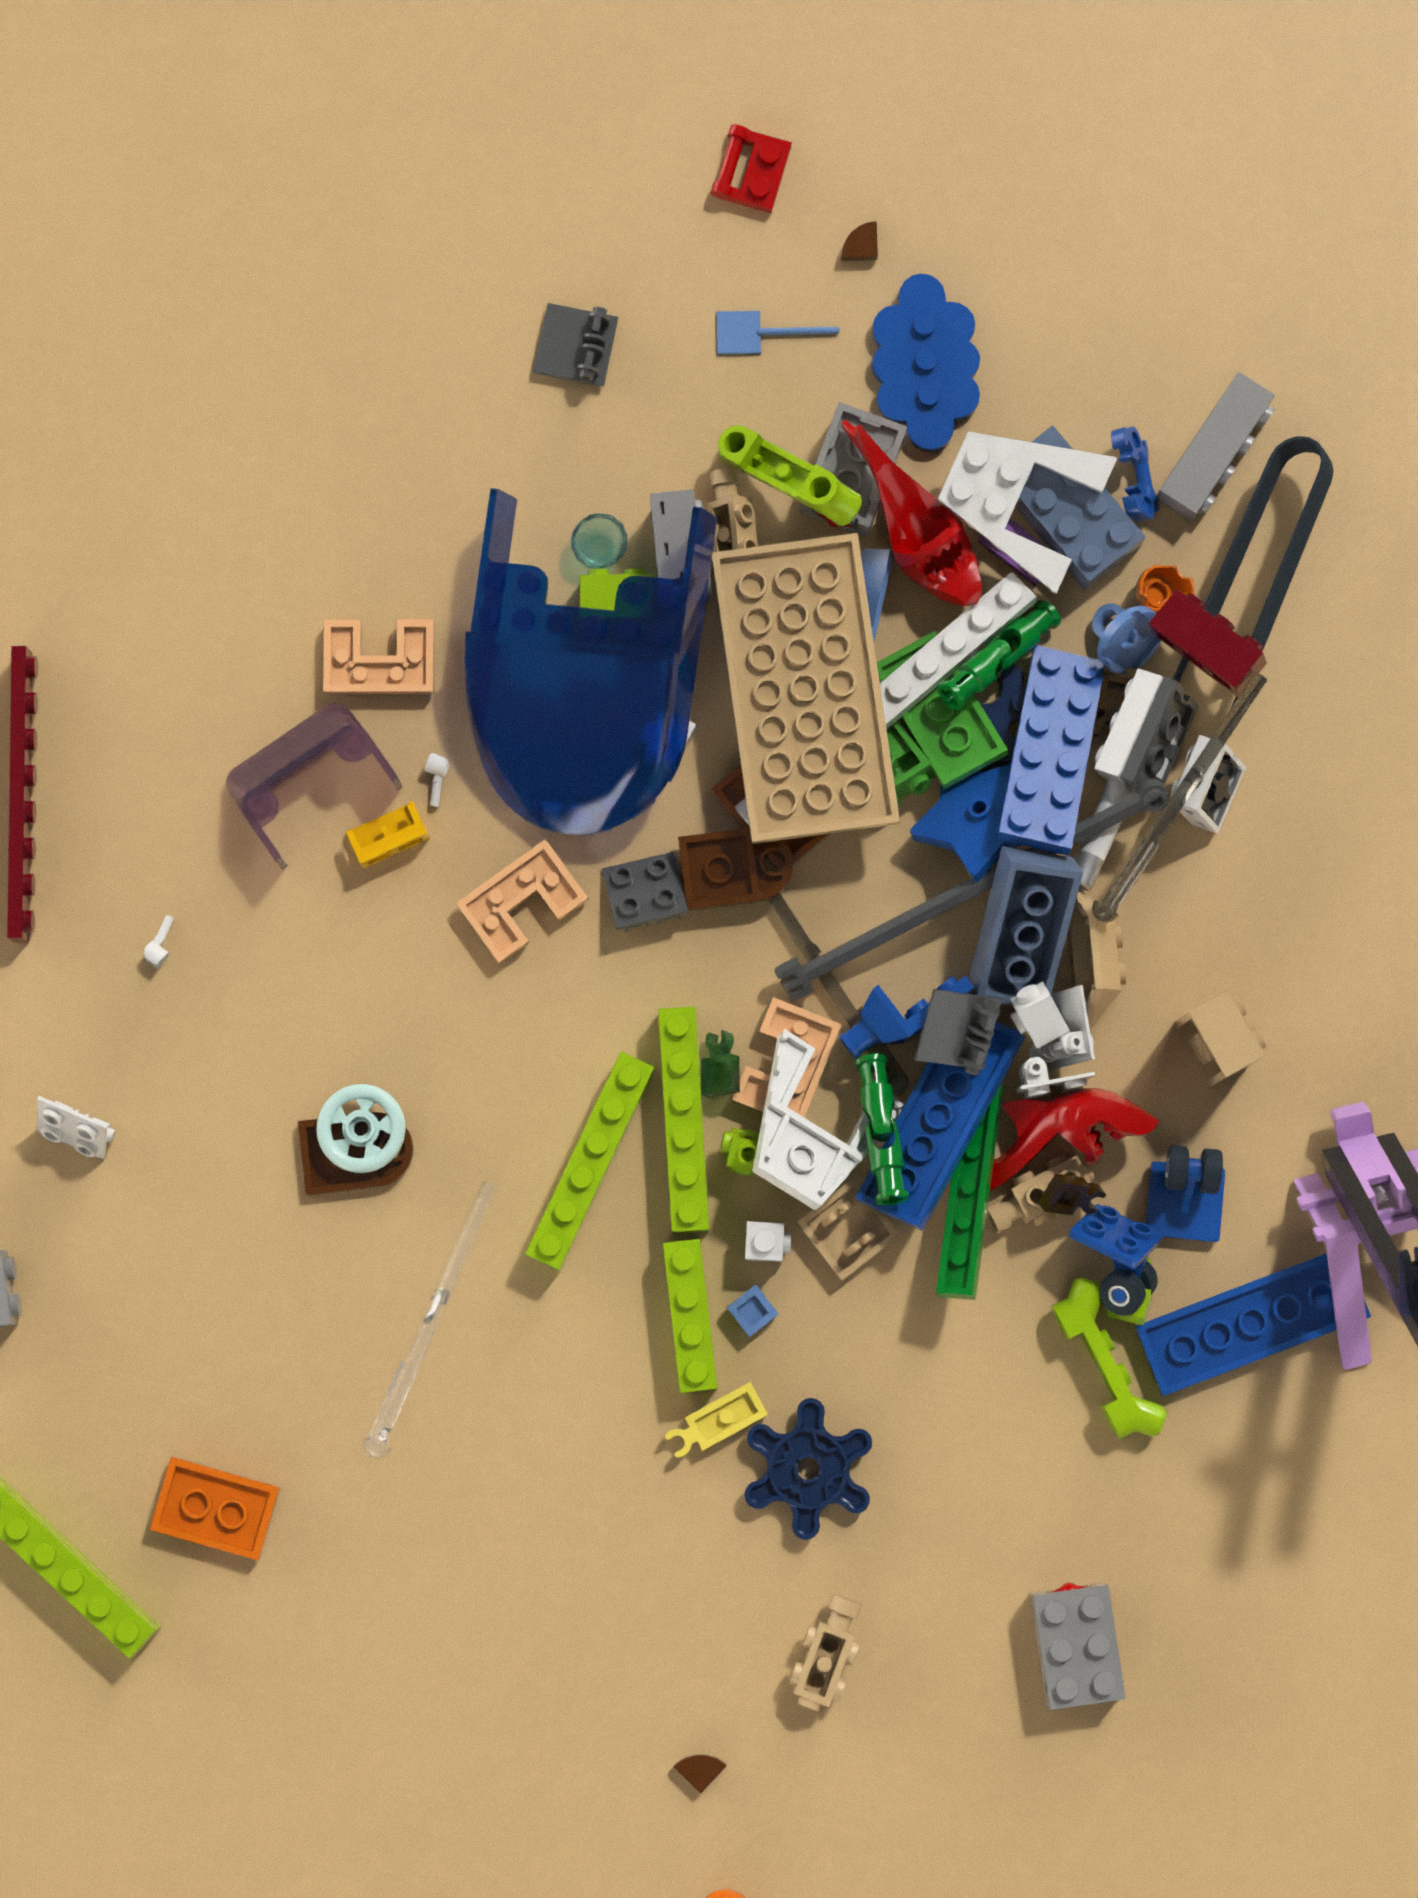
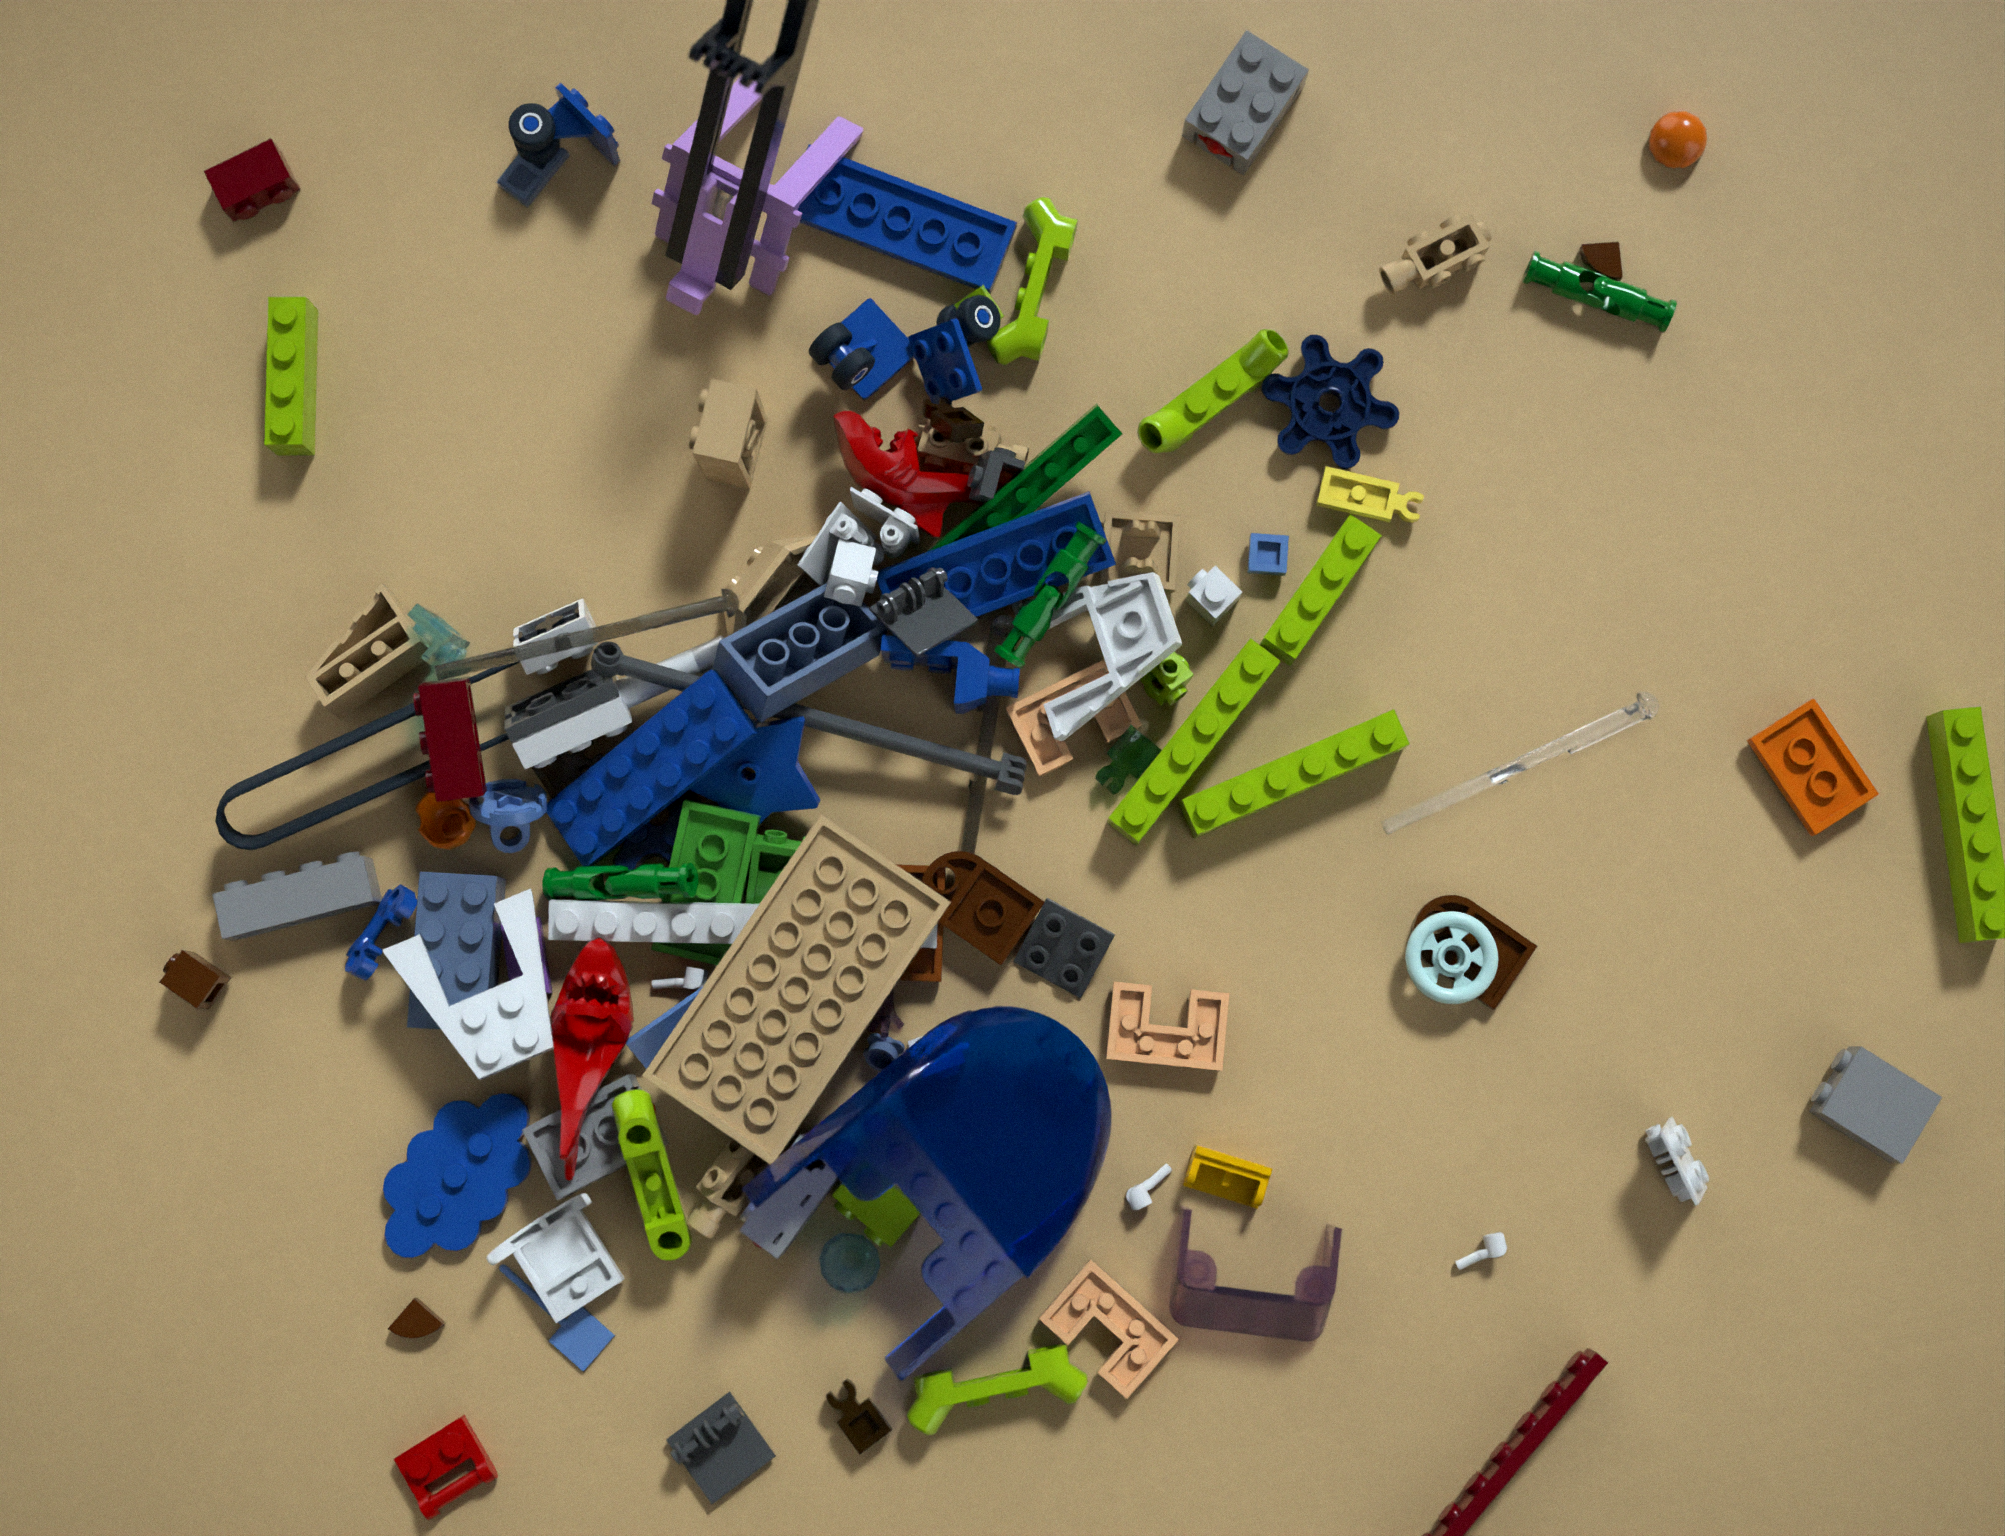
camera: 135 degrees left, 0 degrees up
(458, 512) = (939, 1392): none -> lime plate
(494, 444) = (862, 1421): none -> dark brown plate
(662, 1746) = (1607, 294): none -> green piece
(707, 705) = (882, 1051): none -> sand blue plate
(729, 731) = (884, 1016): none -> bar
(800, 371) = (562, 1258): none -> white piece
(886, 637) = (693, 979): none -> white hand
(900, 1393) = (1213, 393): none -> lime plate
(1007, 1174) = (985, 475): none -> dark grey bracket
(1232, 329) = (194, 979): none -> reddish brown brick
(1297, 715) = (447, 643): none -> clear light blue bracket
(1326, 656) = (368, 656): none -> tan wedge

